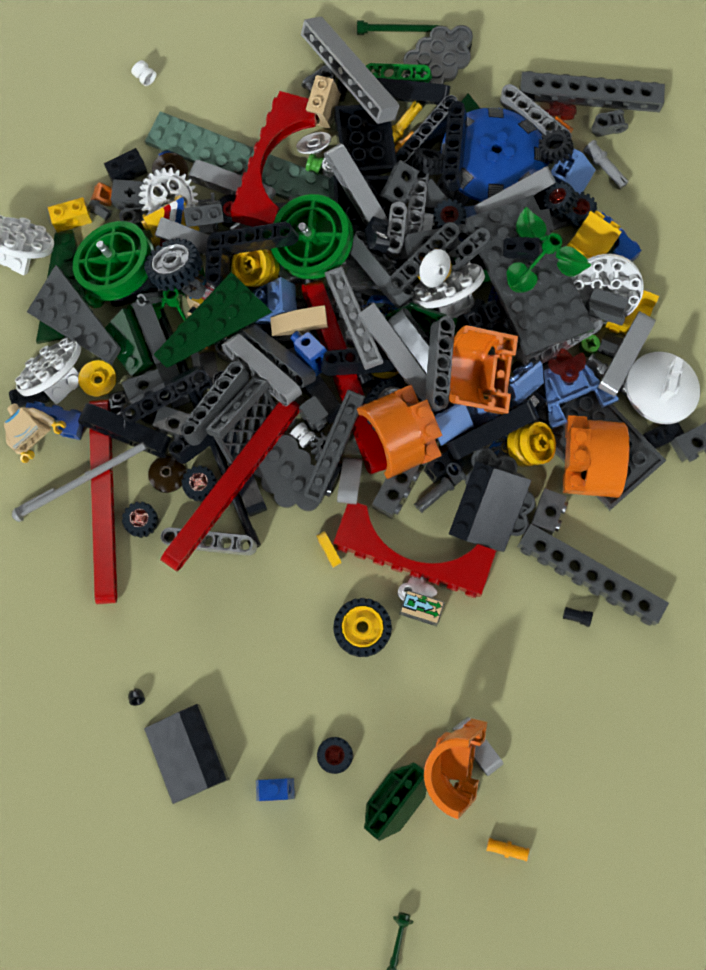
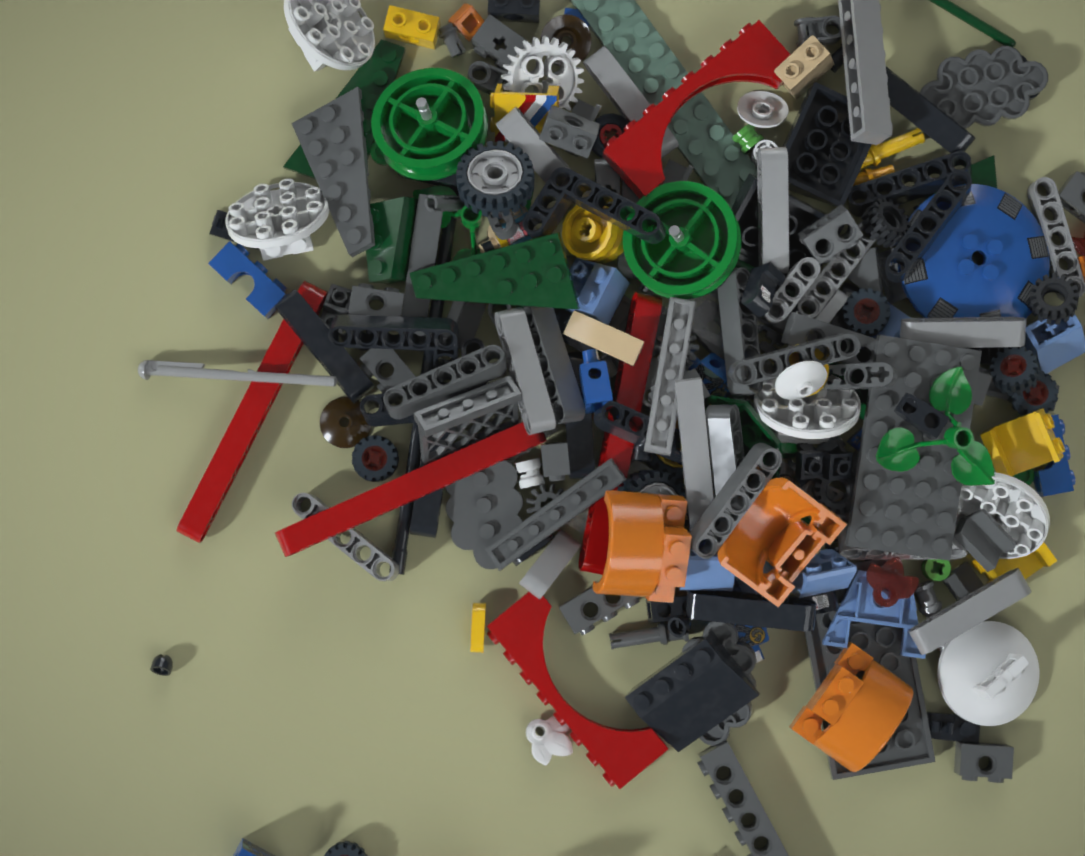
camera: 25 degrees right, 10 degrees up
(26, 428) = (212, 277): tan torso -> none
(95, 370) = (314, 256): yellow dish -> none
(135, 514) = (276, 455): black wheel -> none
(186, 753) = (182, 764): black slope -> none
(366, 612) = (457, 762): wheel -> none
(398, 69) = (924, 75): green beam -> none
(421, 608) = (542, 762): panel -> none
(532, 444) = (787, 654): yellow wheel -> none
(549, 500) = (743, 740): flat silver brick -> none

